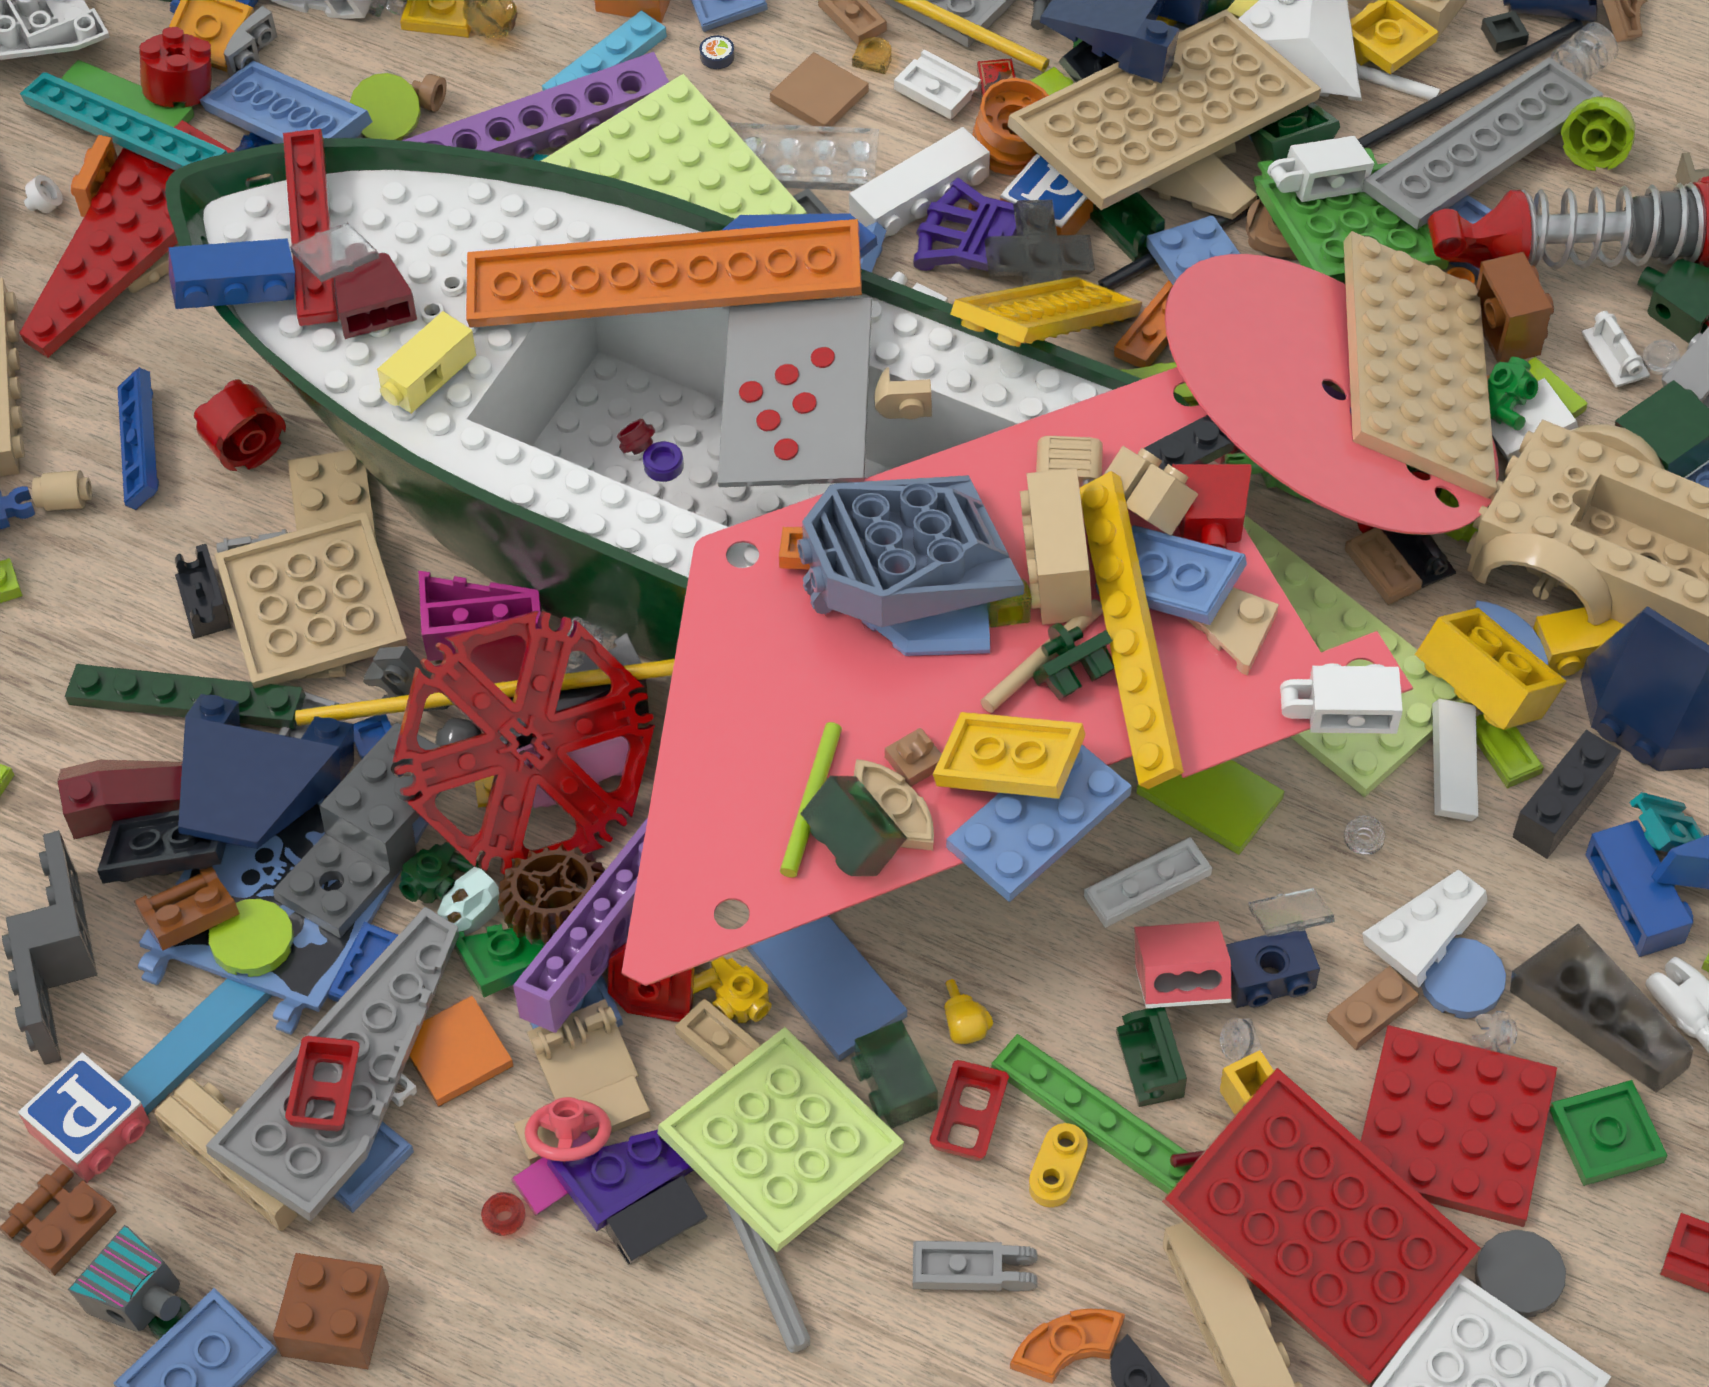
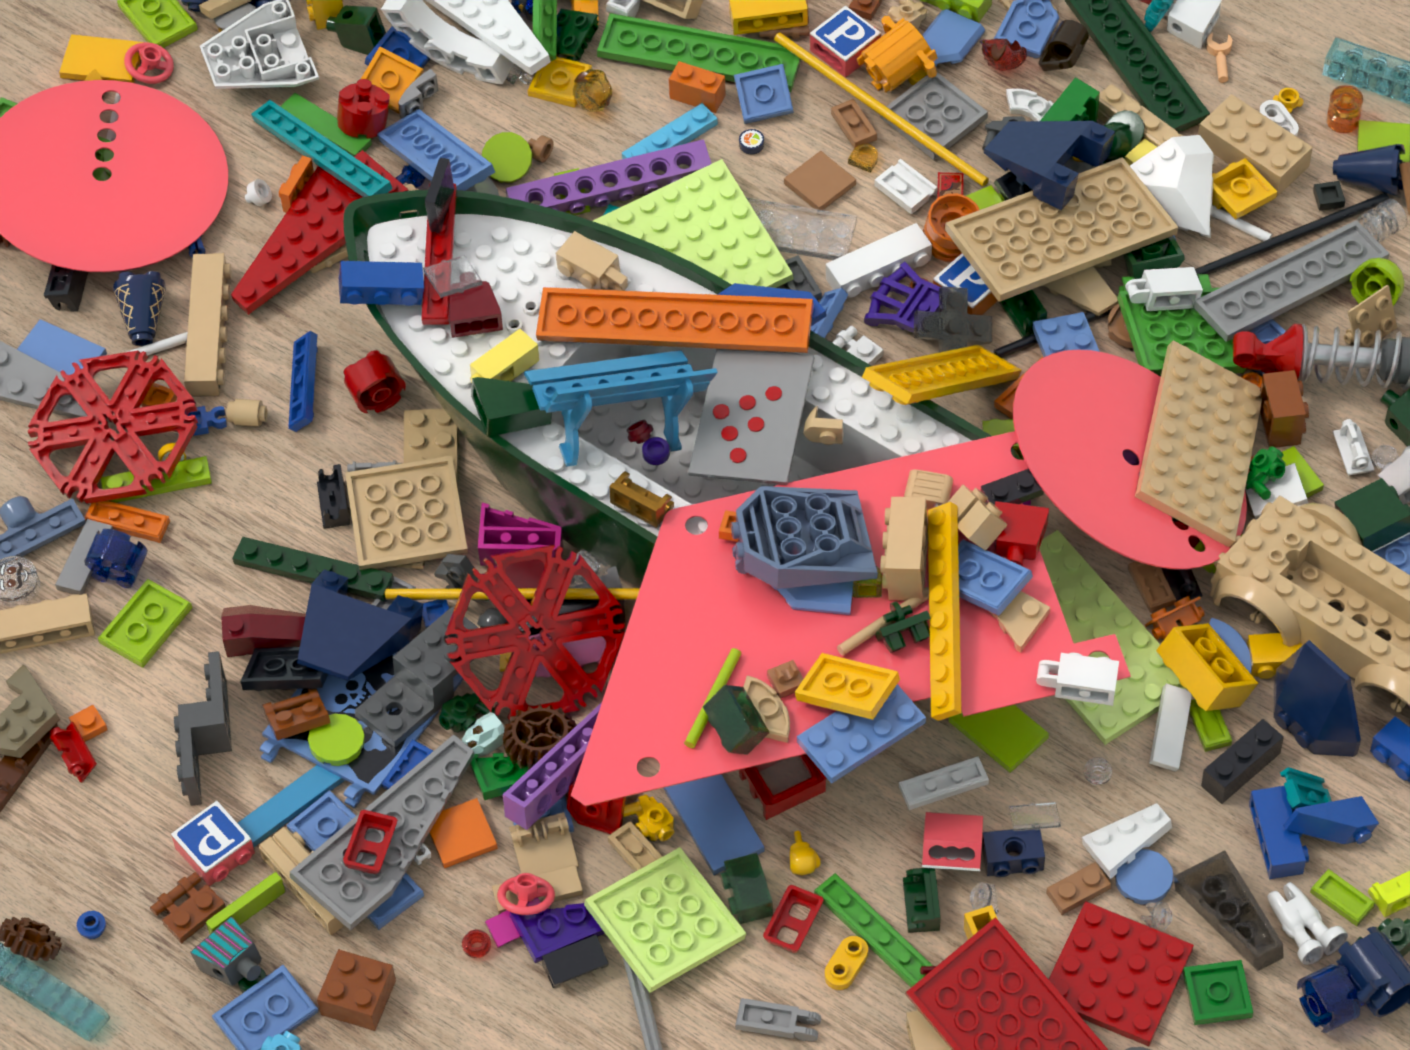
camera: 10 degrees right, 0 degrees up
(150, 1200) = (250, 902): none -> lime tile
(244, 1061) = (321, 820): none -> medium blue tile
(300, 141) = (439, 195): none -> black tile
(445, 419) = (506, 406): none -> dark green slope
(529, 213) = (590, 264): none -> tan hinge
(596, 365) = (649, 380): none -> dark azure piece
(653, 531) = (639, 501): none -> pearl gold hinge
(922, 913) = (784, 783): none -> red window
(1438, 597) = (1185, 612): none -> orange hinge
(1606, 169) = (1370, 316): none -> tan hinge

